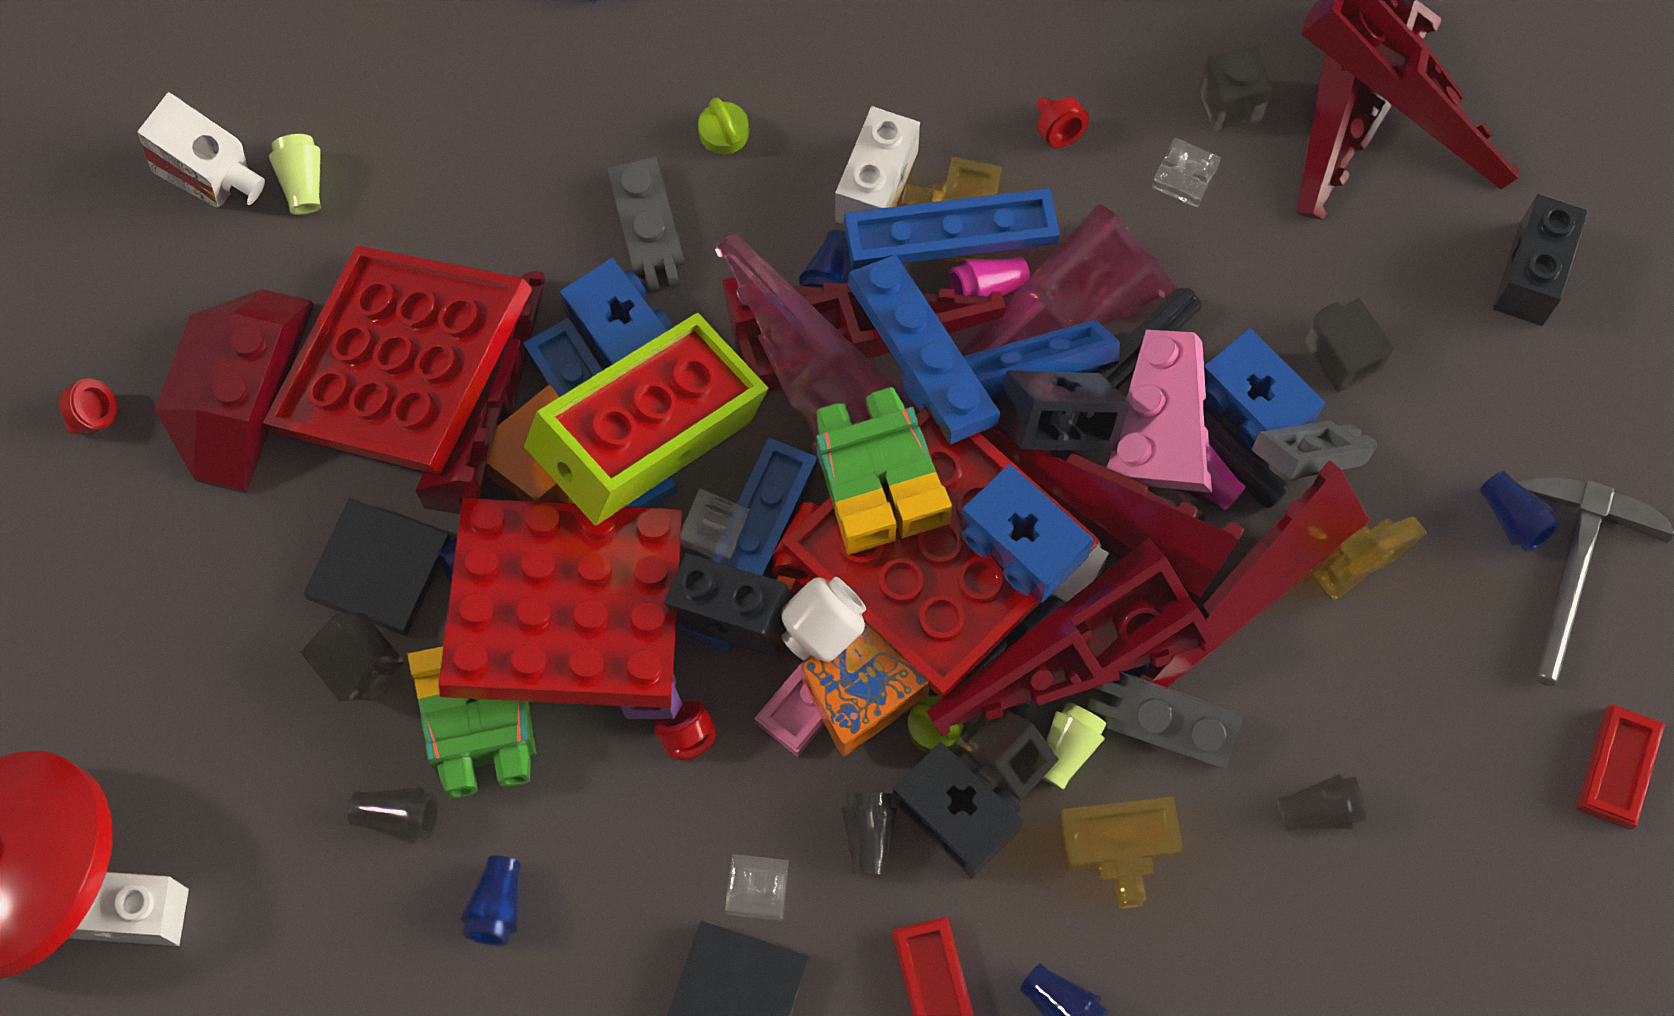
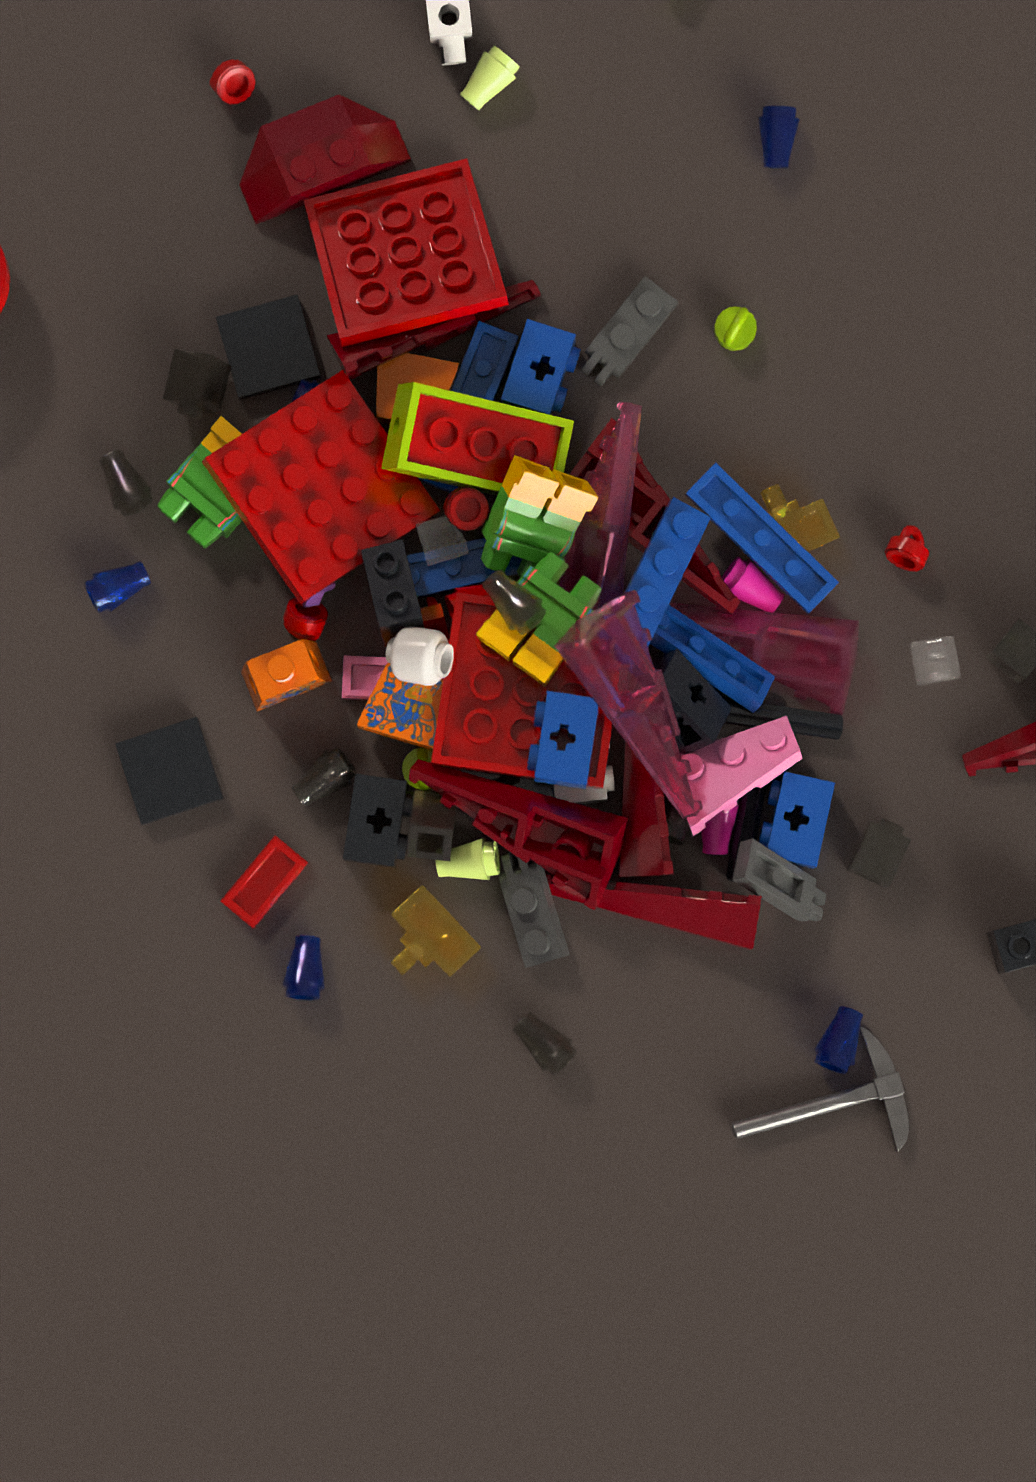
camera: 55 degrees right, 15 degrees up
(703, 473) = (466, 508): none -> red tile
(726, 792) = (285, 673): none -> orange torso
(757, 887) = (242, 735): clear tile -> none
(765, 412) = (534, 515): none -> hips
(829, 263) = (680, 476): clear blue cone -> none
(846, 470) = (514, 602): none -> clear smoke cone
(878, 163) = (774, 456): white brick -> none
(991, 424) = (616, 668): none -> clear pink wedge
(1366, 553) = (723, 958): clear yellow hinge -> none
(1620, 766) = (711, 1212): red tile -> none

